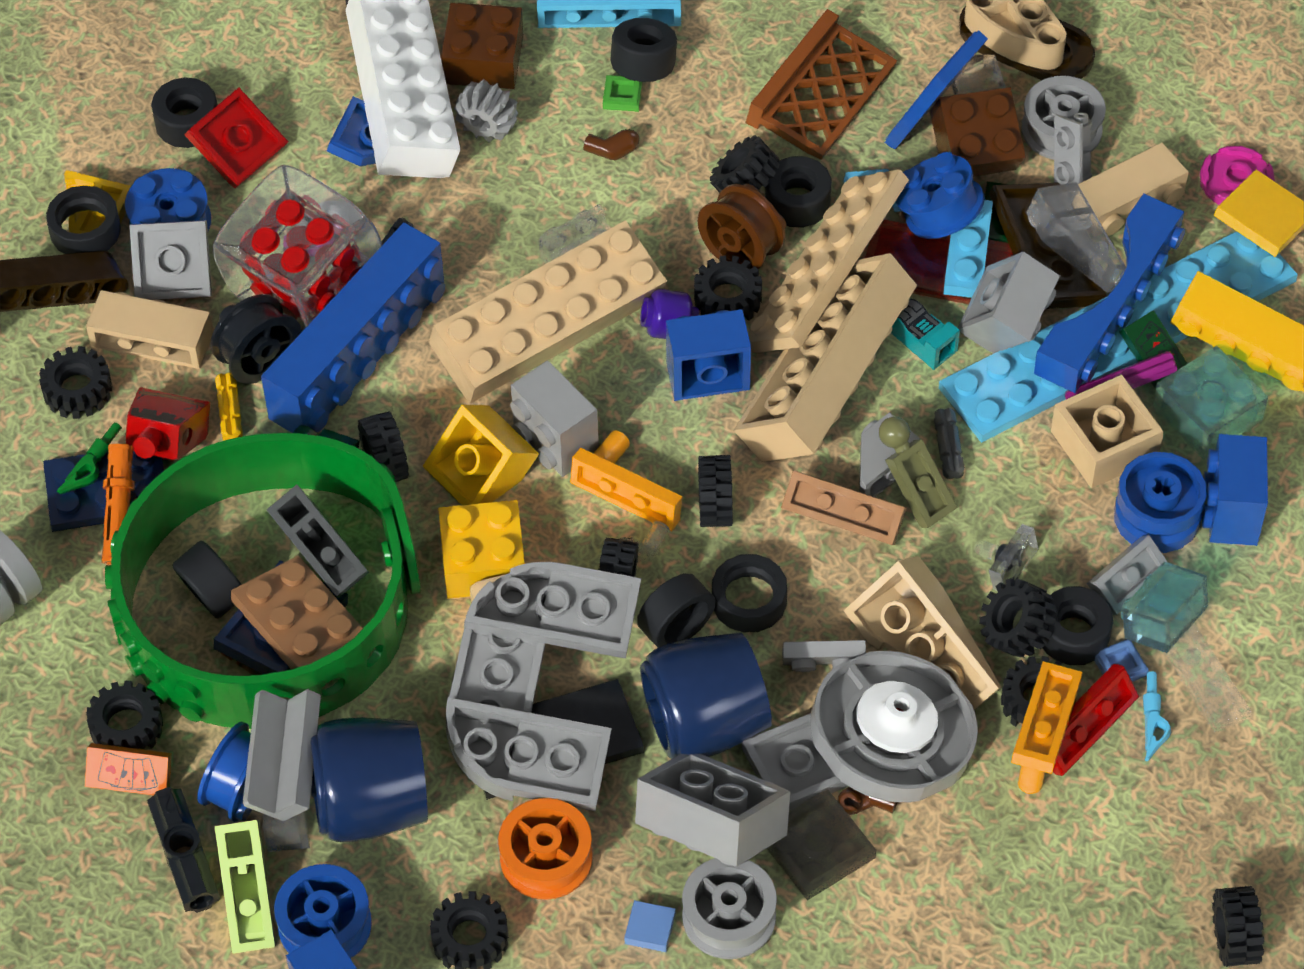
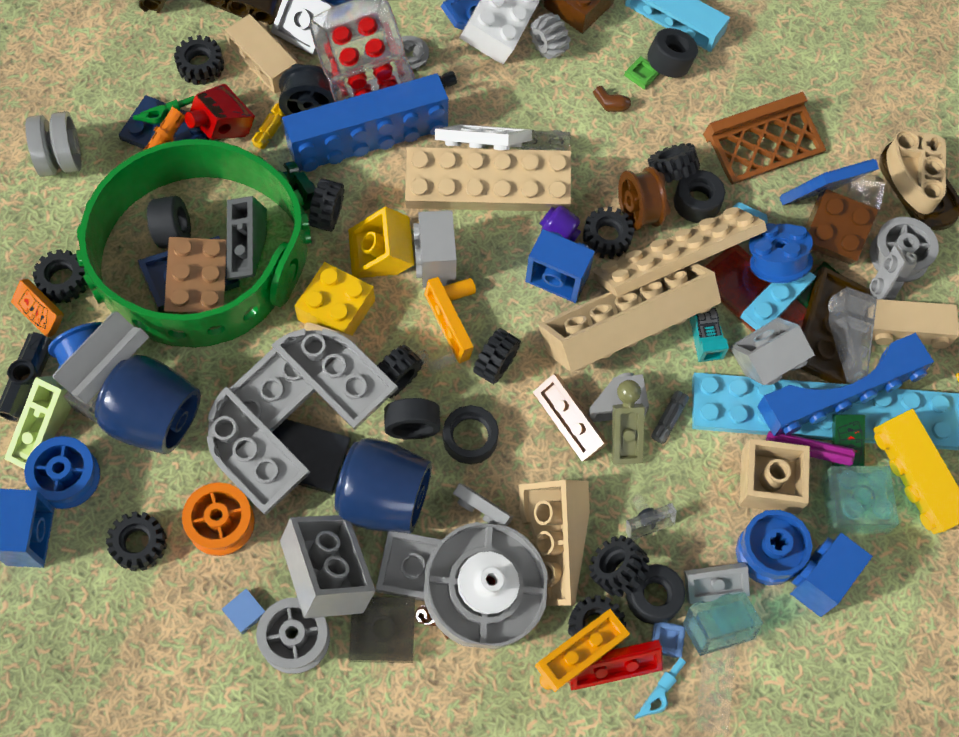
camera: 30 degrees right, 10 degrees up
(507, 264) = (479, 136): none -> white plate

